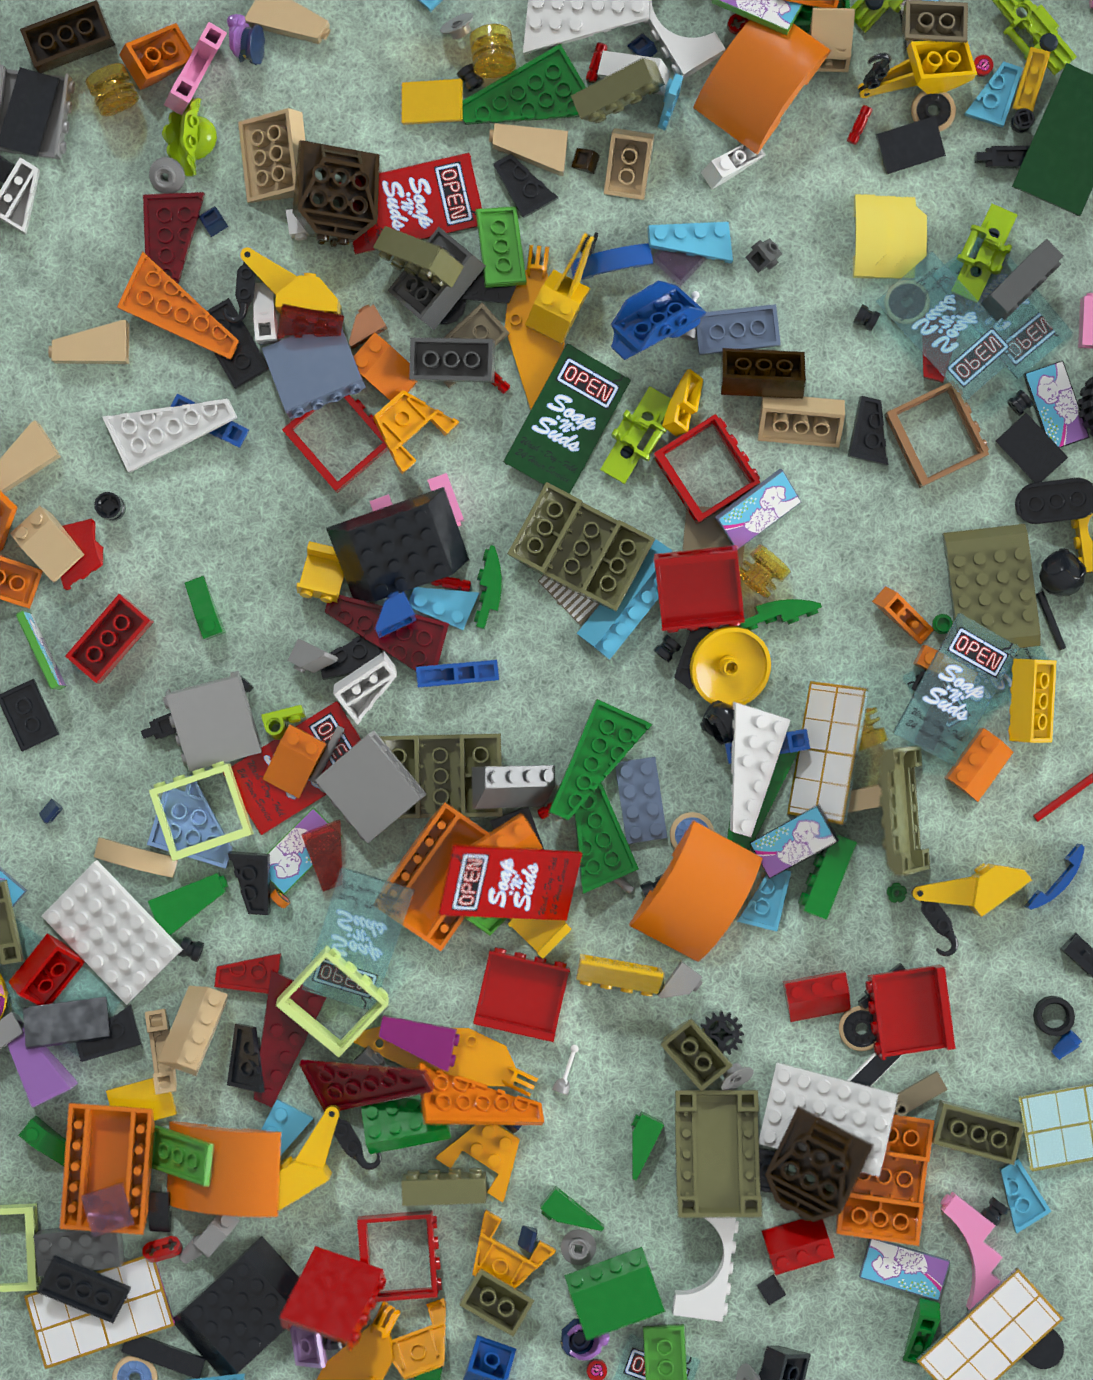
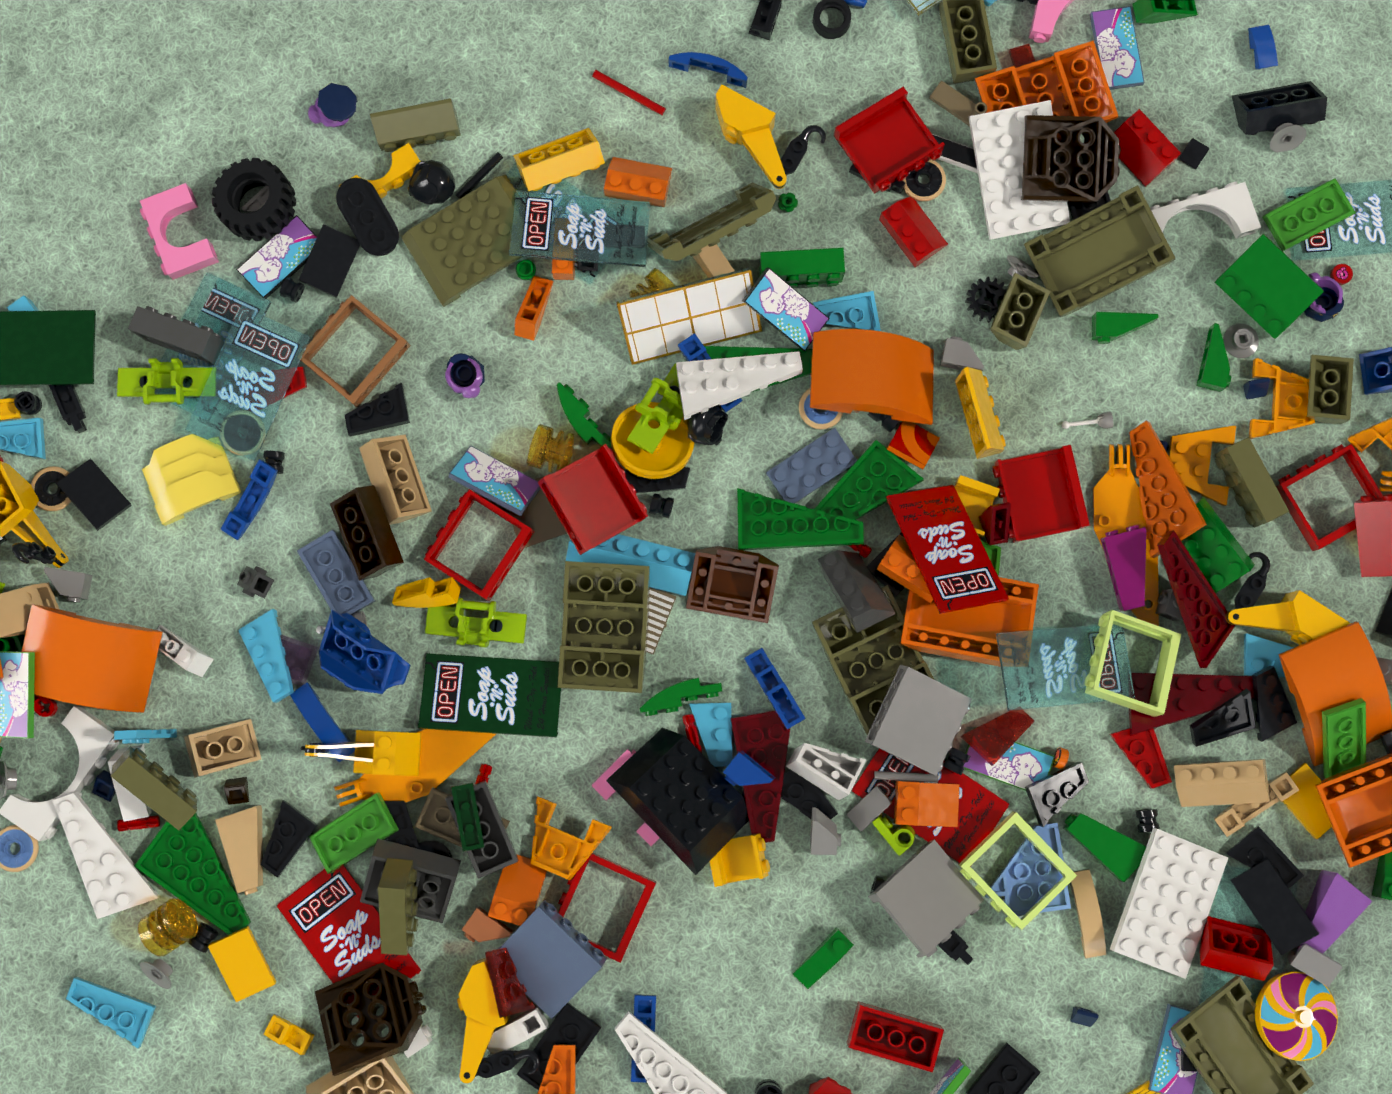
camera: 115 degrees left, 5 degrees down
(239, 1109) = (1273, 707): none -> black wing
(314, 708) = (869, 808): none -> light grey slope
(320, 804) = (956, 761): none -> black wheel
(353, 116) = (288, 1034): none -> yellow slope
(467, 351) = (467, 816): none -> dark green plate
(512, 940) = (996, 522): none -> dark red slope
(568, 680) = (732, 583): none -> reddish brown slope
(619, 901) = (913, 444): none -> tile
(748, 690) = (667, 413): none -> lime piece
(838, 90) = (70, 583): none -> light grey slope
(840, 282) = (251, 501): none -> blue slope
(859, 124) = (95, 550): red axle -> none
(867, 525) = (465, 375): none -> piece
(936, 1175) = (1021, 55): none -> clear red plate

